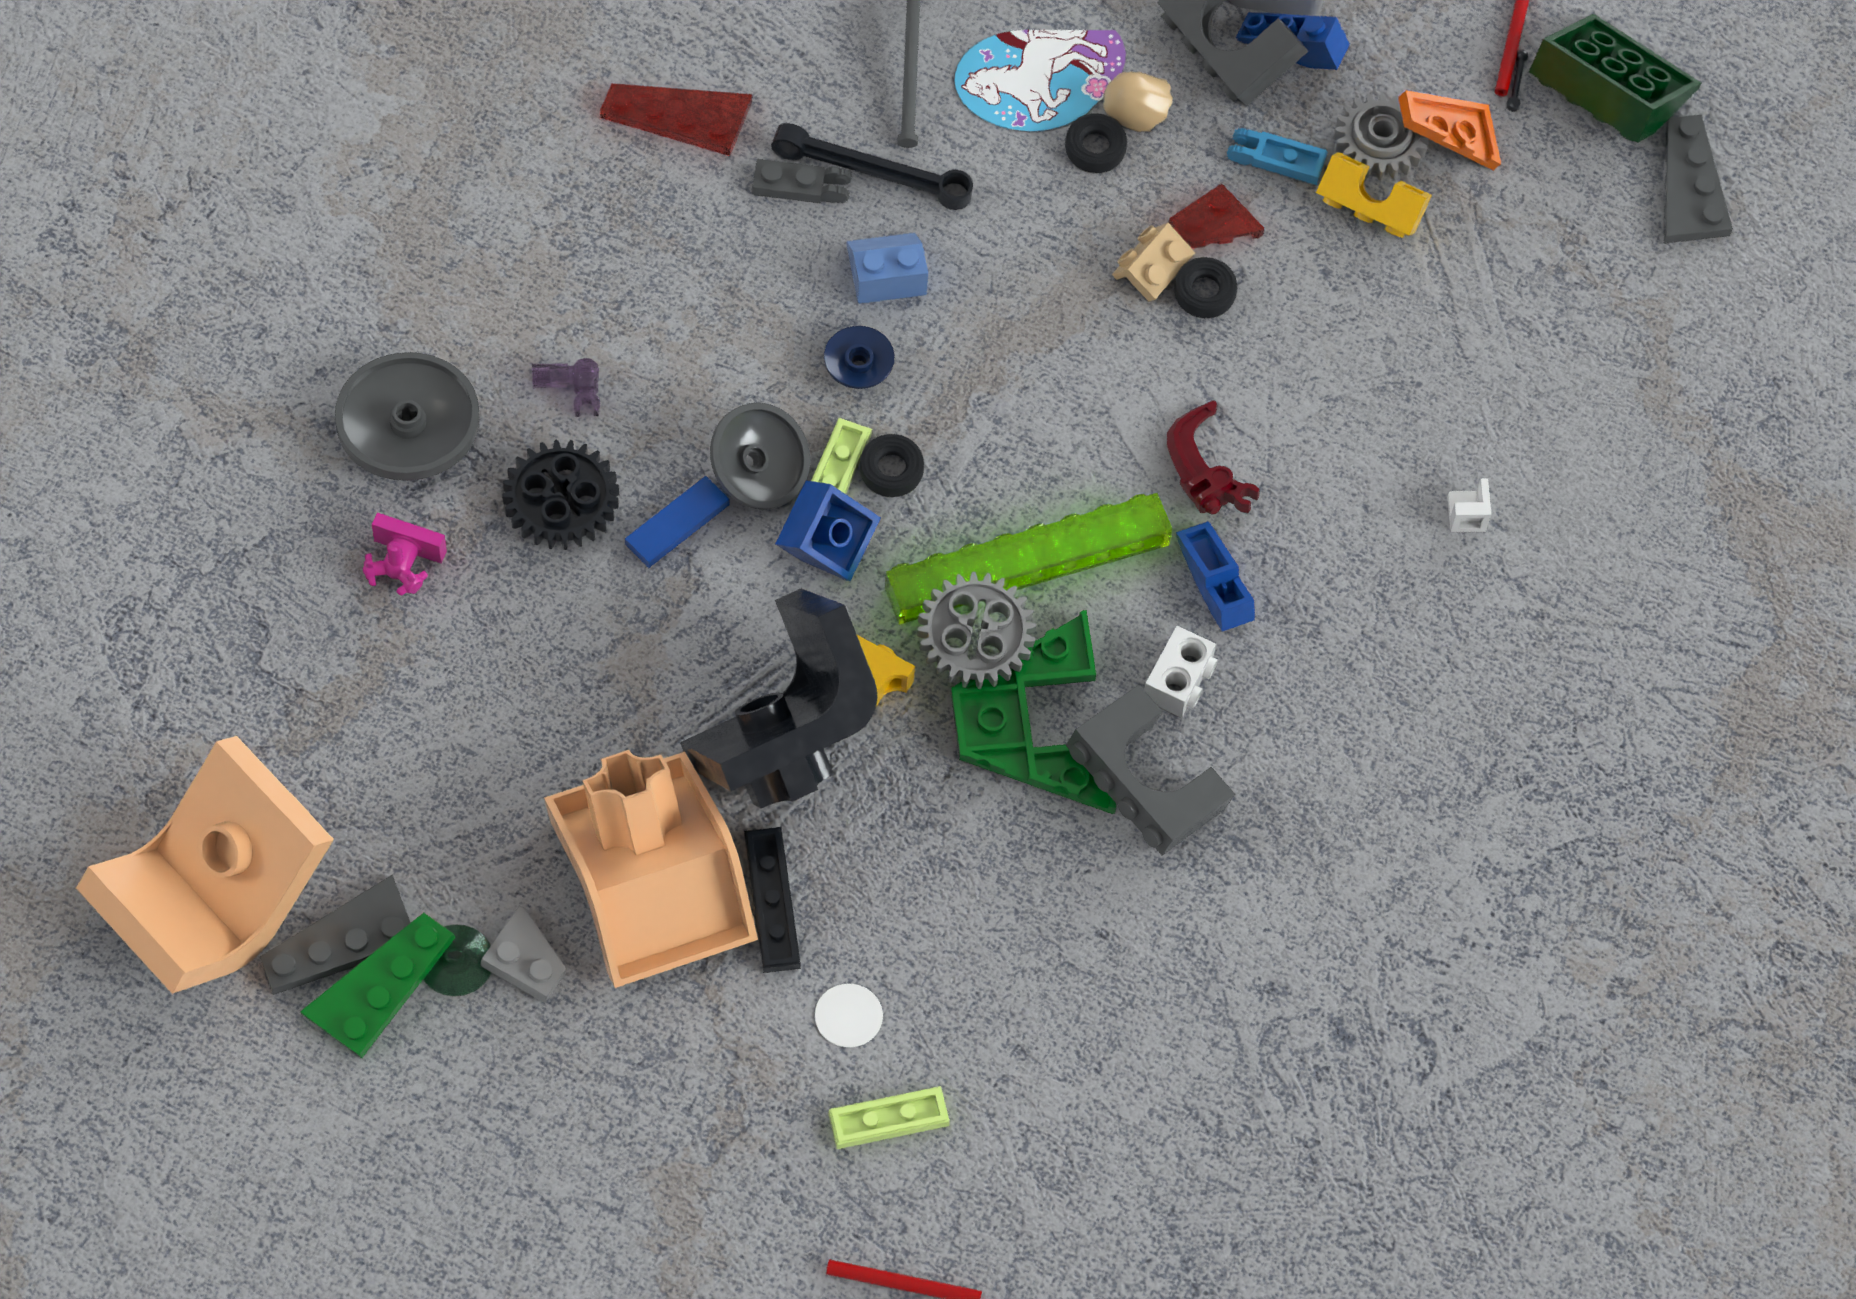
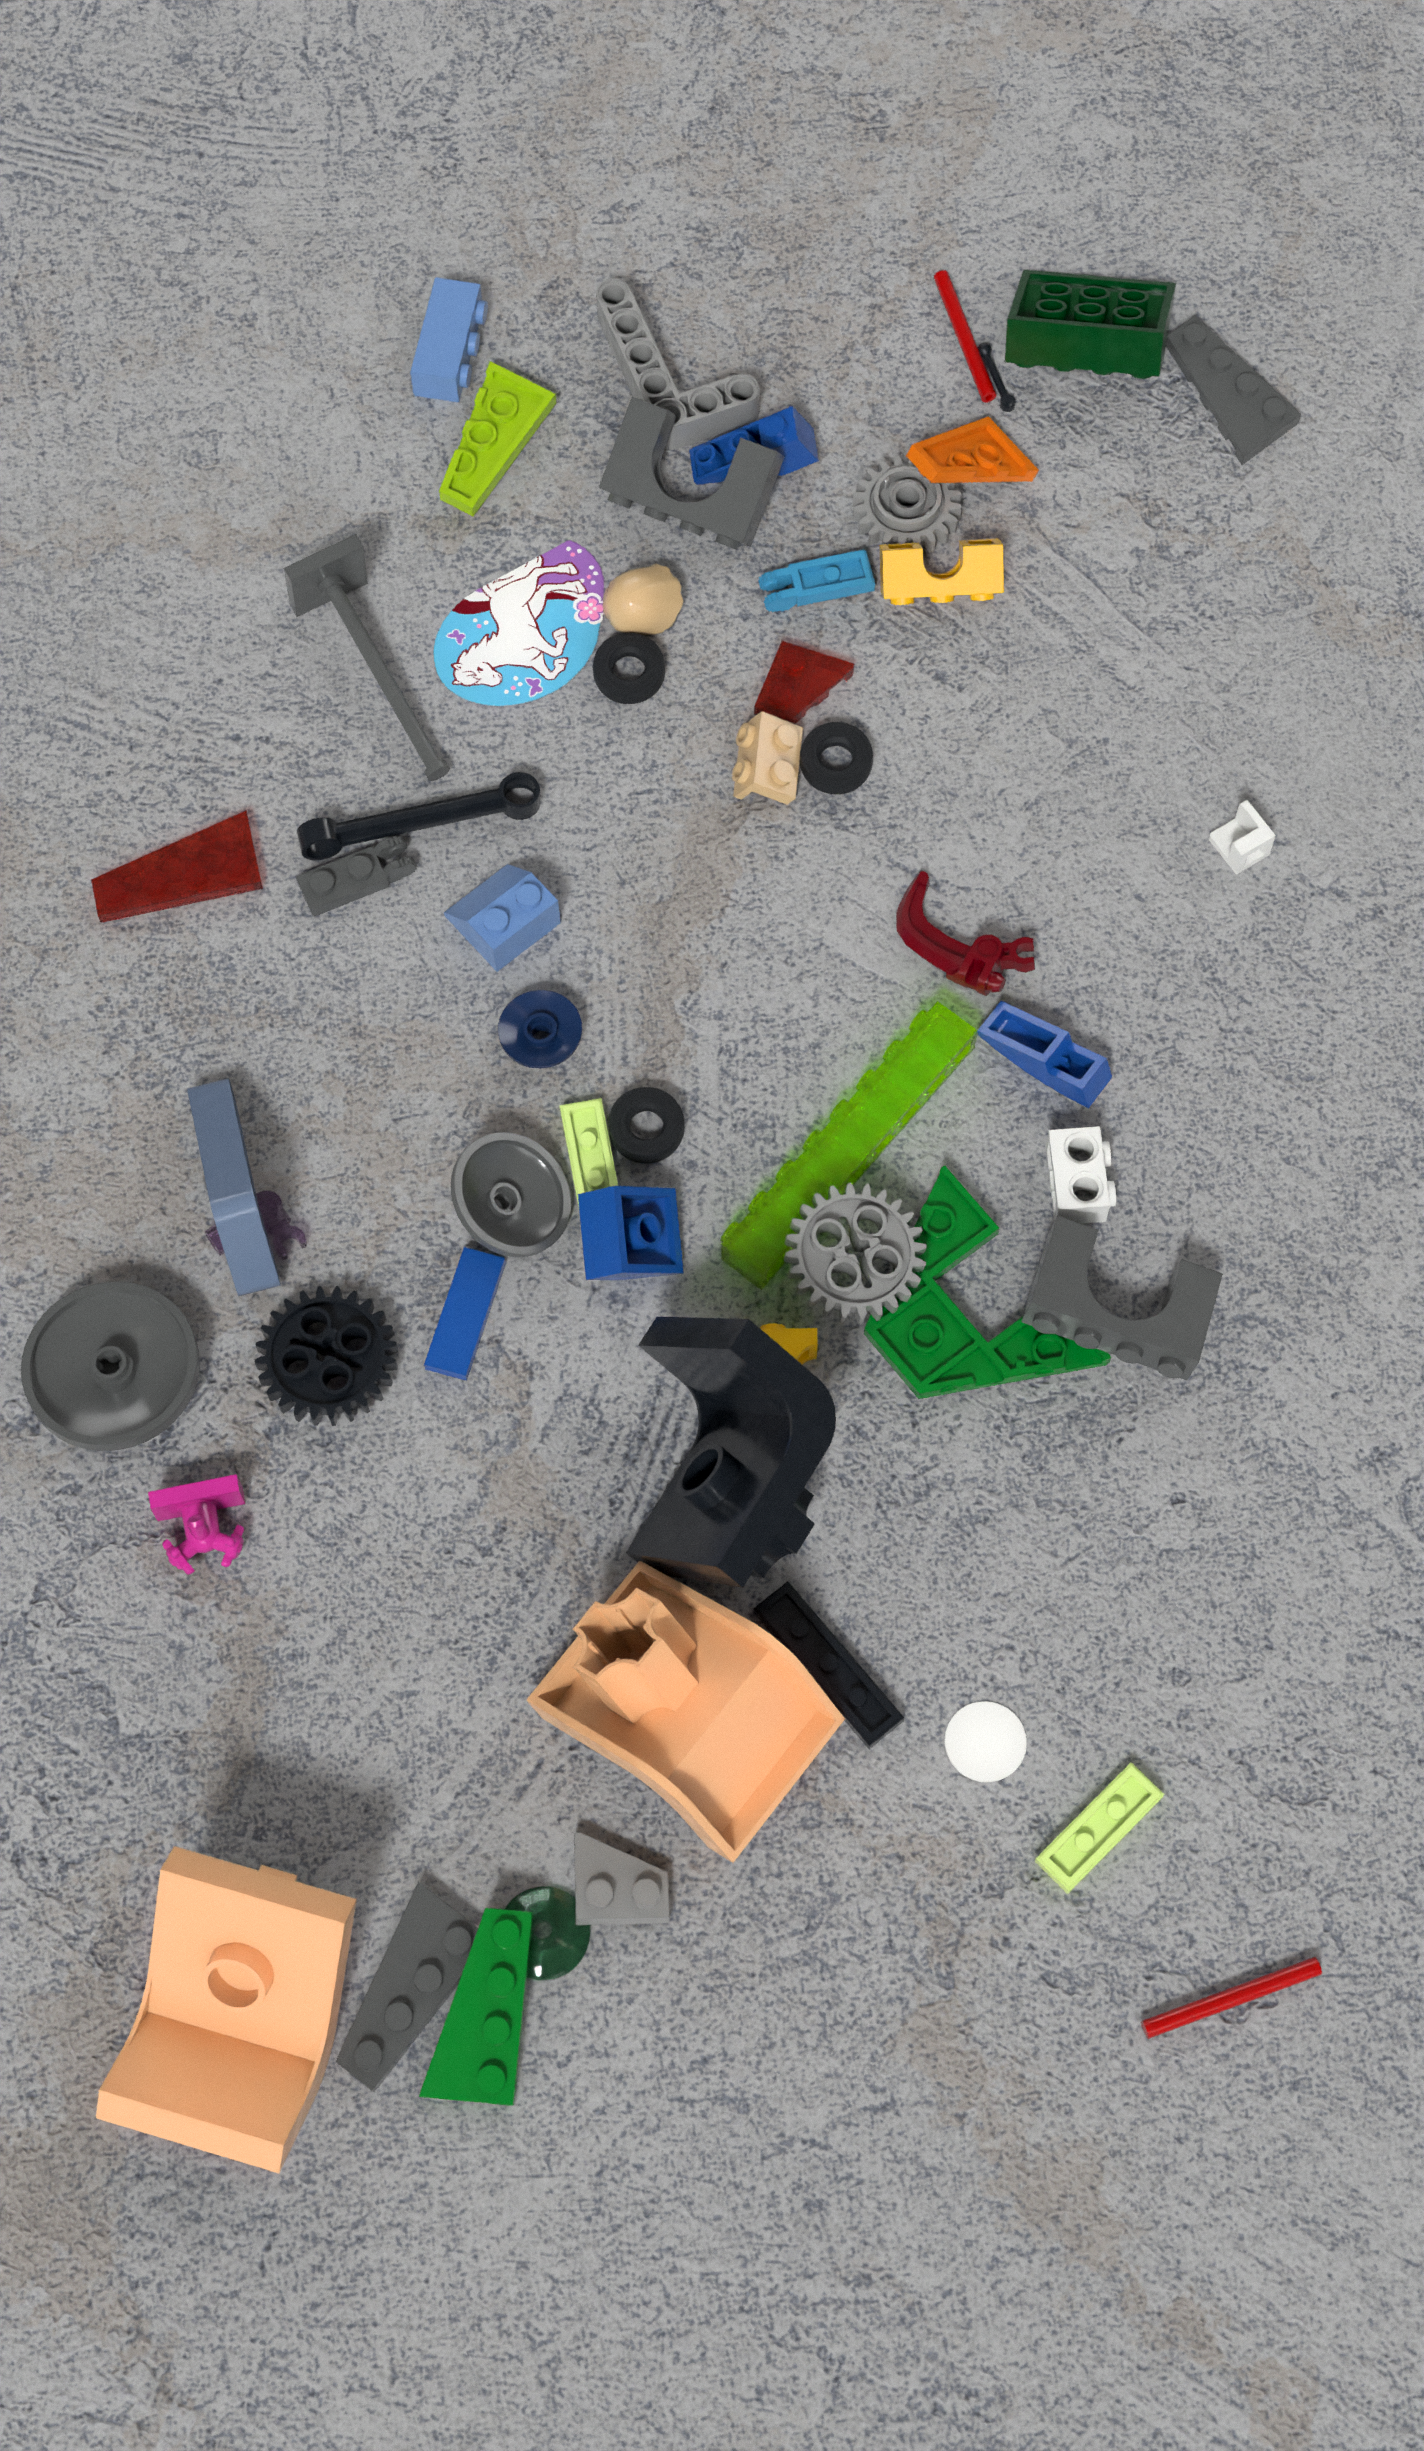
camera: 25 degrees left, 5 degrees up
(564, 341) = (232, 1187): none -> sand blue beam

